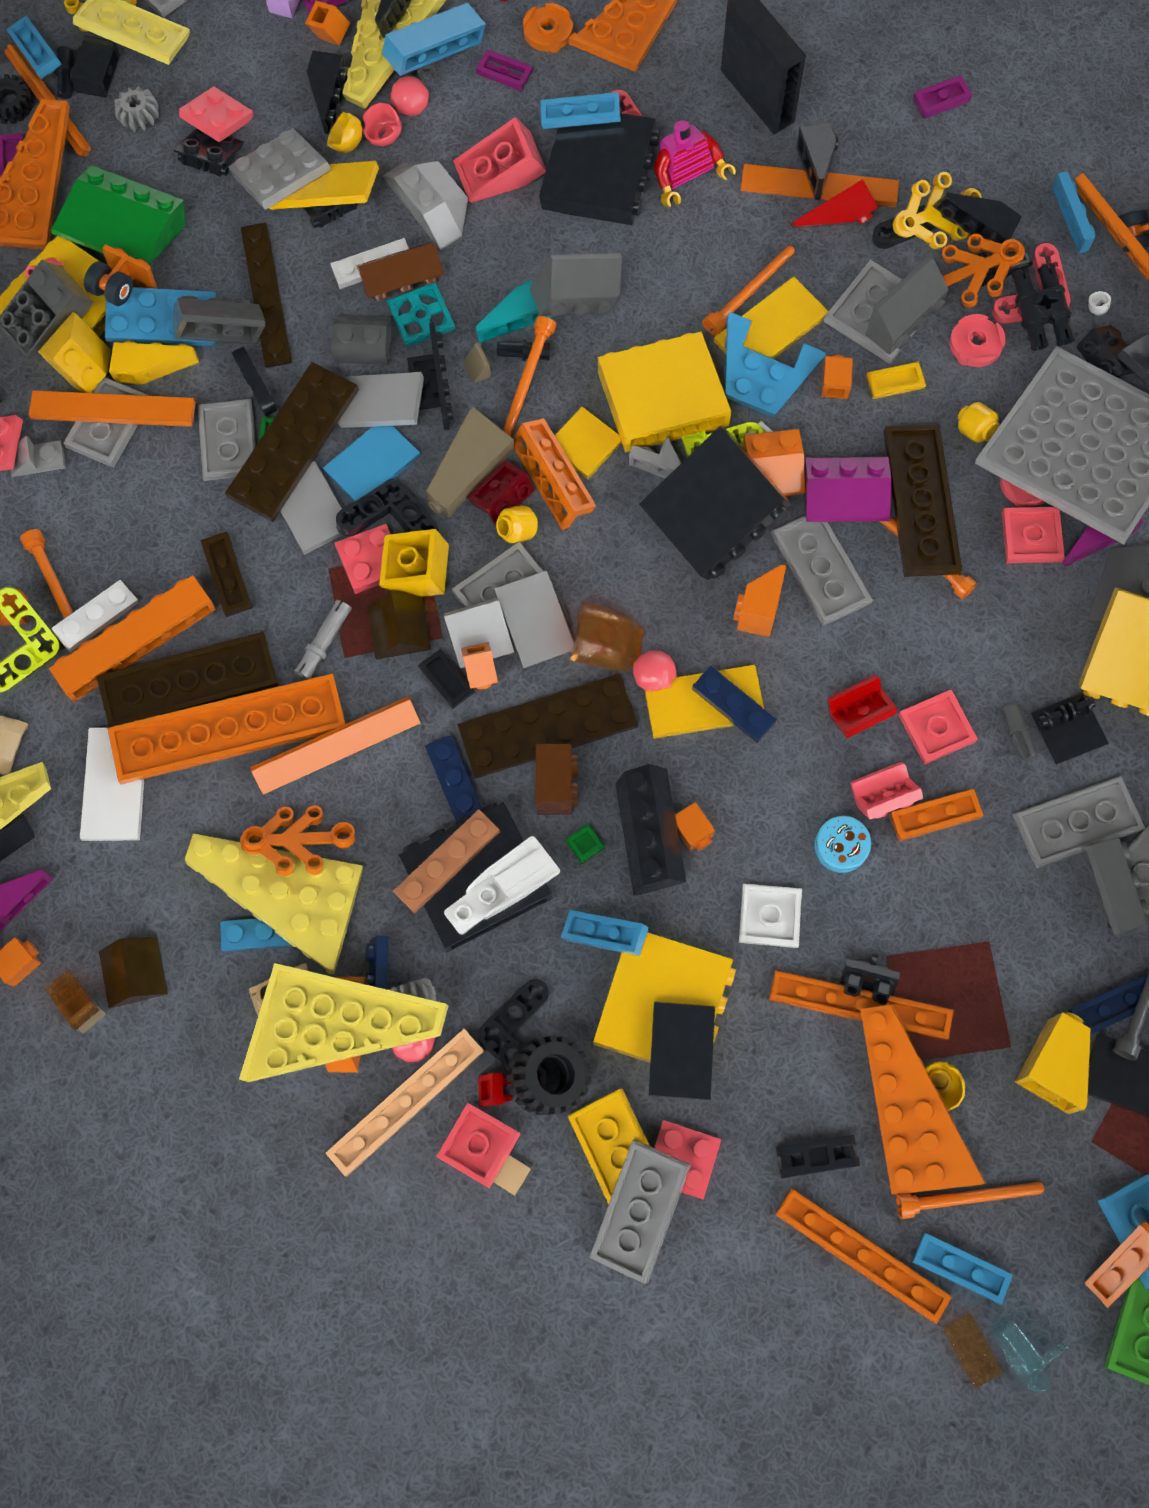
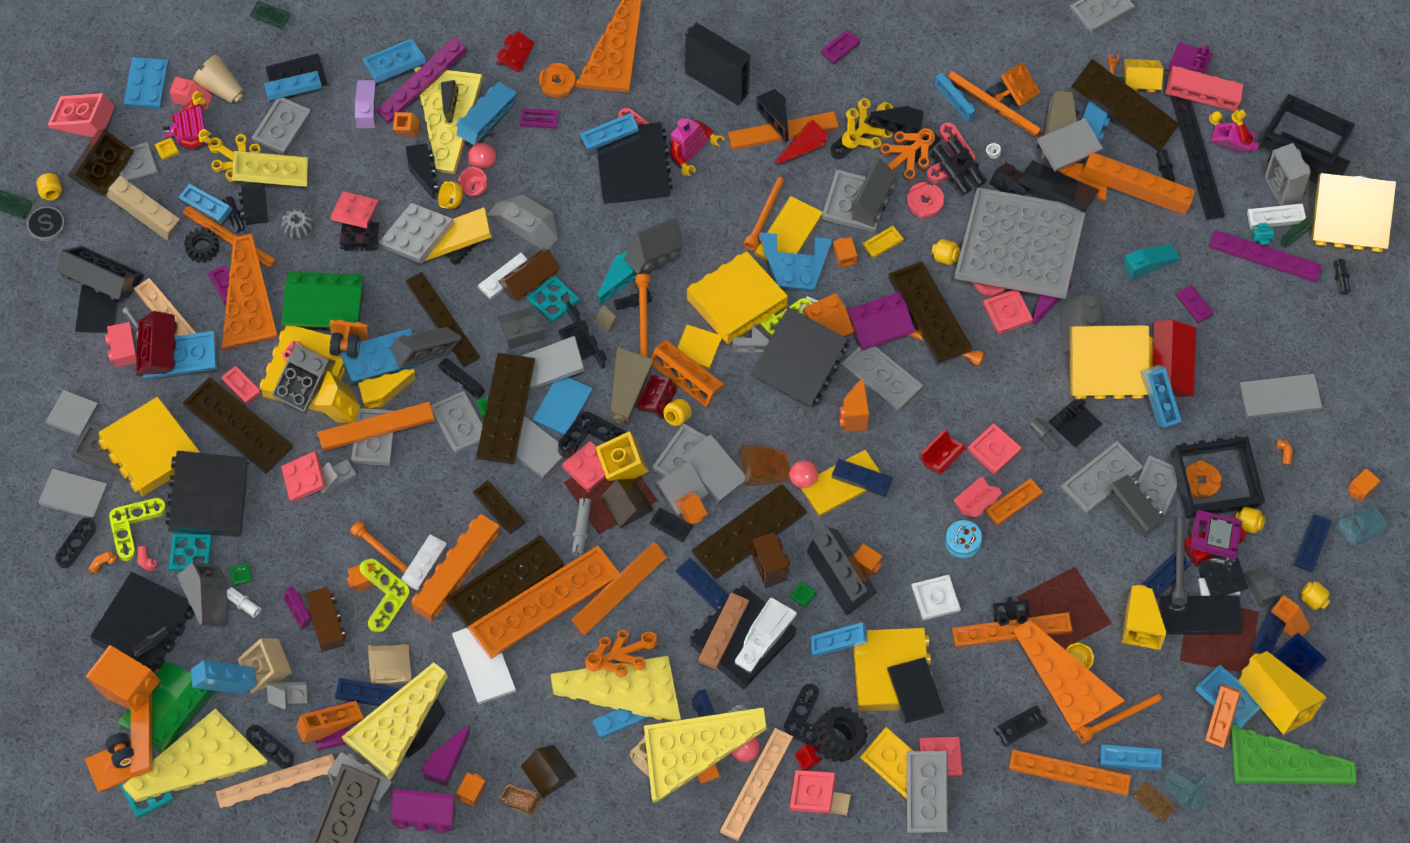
camera: 25 degrees left, 10 degrees down
(500, 162) = (564, 182): coral slope -> none

